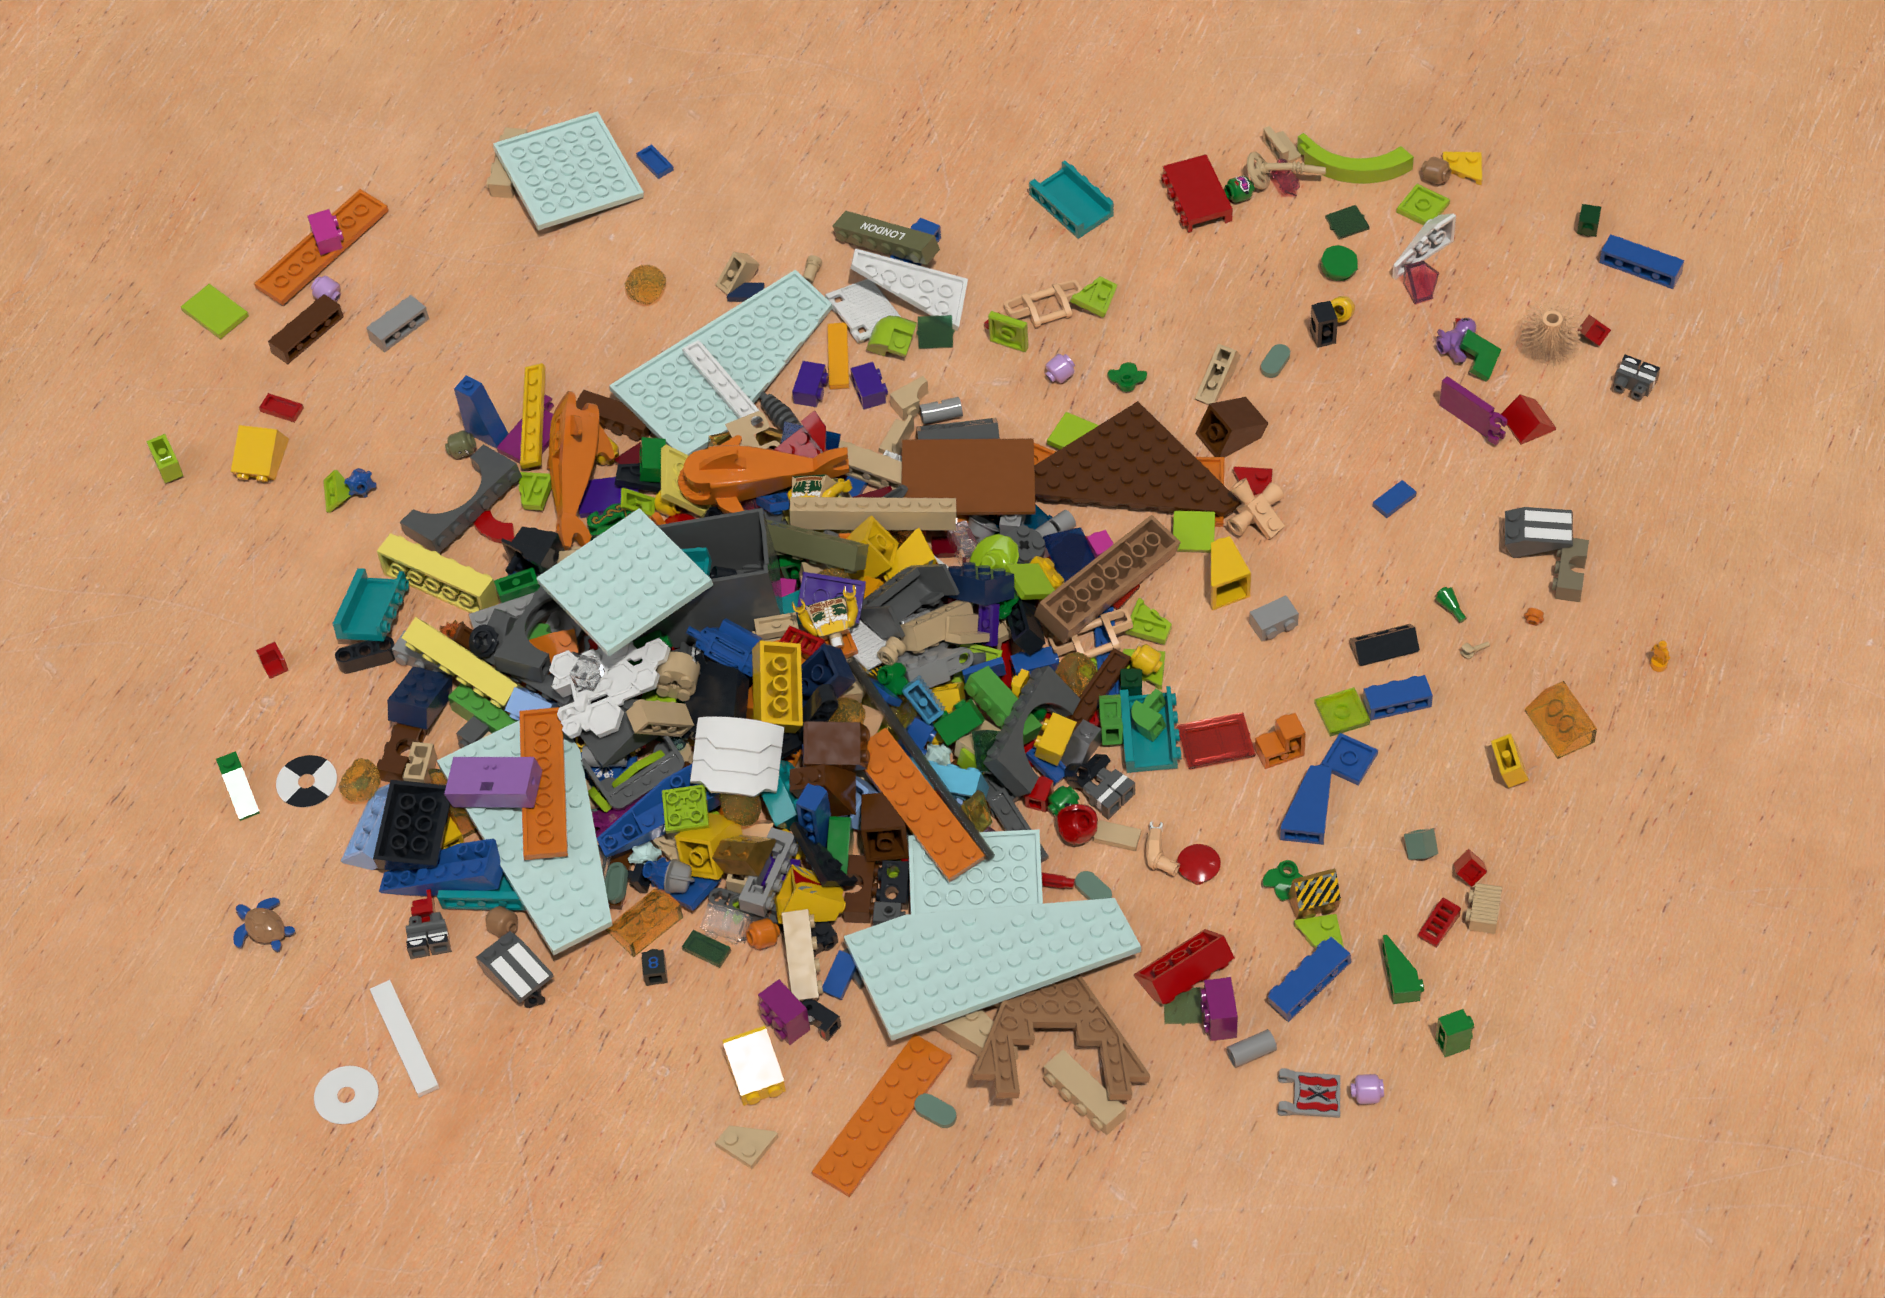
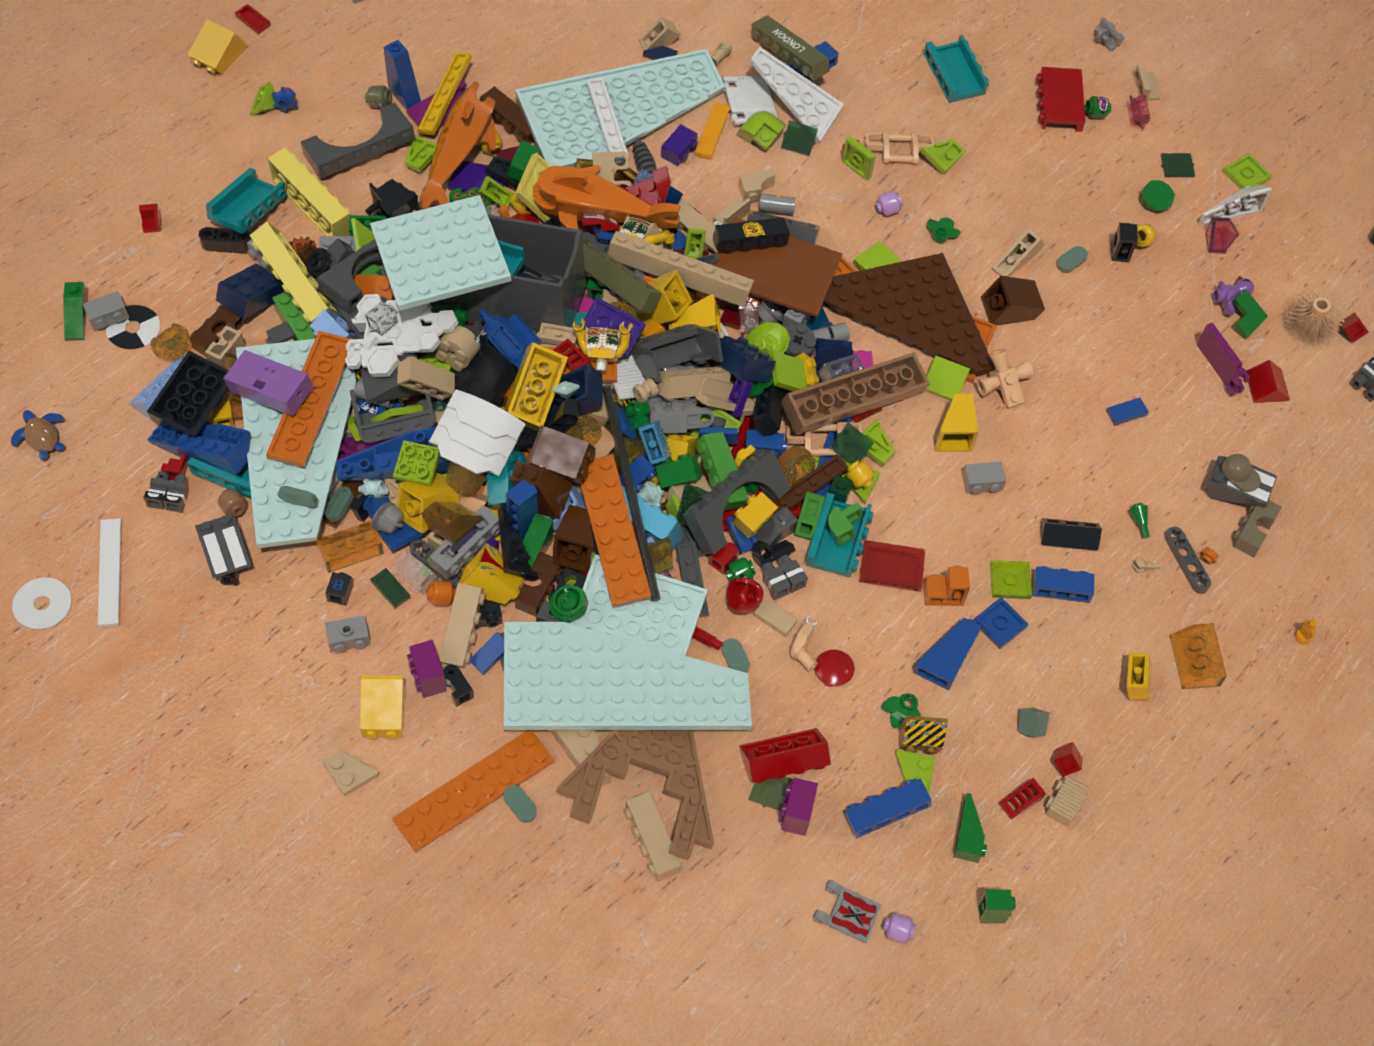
camera: 10 degrees right, 5 degrees up
(164, 458) = (141, 26): lime brick -> none
(272, 773) = (106, 311): none -> light grey brick
(494, 529) = (373, 173): red tile -> none
(517, 596) = (362, 234): none -> lime slope
(576, 886) = (297, 496): none -> sand green tile
(645, 284) = (581, 19): clear yellow hair -> none
(684, 1009) = (347, 634): none -> light grey brick
(770, 493) = (606, 223): none -> red slope
(811, 677) = (565, 389): none -> light aqua slope
(868, 385) = (726, 163): dark purple brick -> none
(875, 481) = (694, 243): none -> lime slope
(902, 894) = (568, 603): none -> green hat
(931, 452) = (751, 235): none -> black brick
(1081, 557) = (840, 367): none -> clear brick
(1124, 632) = (851, 444): none -> clear green piece
(1219, 106) = (1107, 33): none -> light grey hips
(1251, 1048) = (813, 851): light grey pin -> none
(1257, 477) = (1016, 352): red wing -> none
(1264, 168) = (1124, 96): tan dish -> none
(1356, 169) = (1200, 124): lime arch -> none
(1436, 170) = (1269, 147): medium nougat head -> none
(1465, 164) = (1294, 151): yellow wing -> none
(1516, 626) = (1191, 558): none -> dark grey beam
(1533, 520) = (1240, 473): none -> dark tan cap

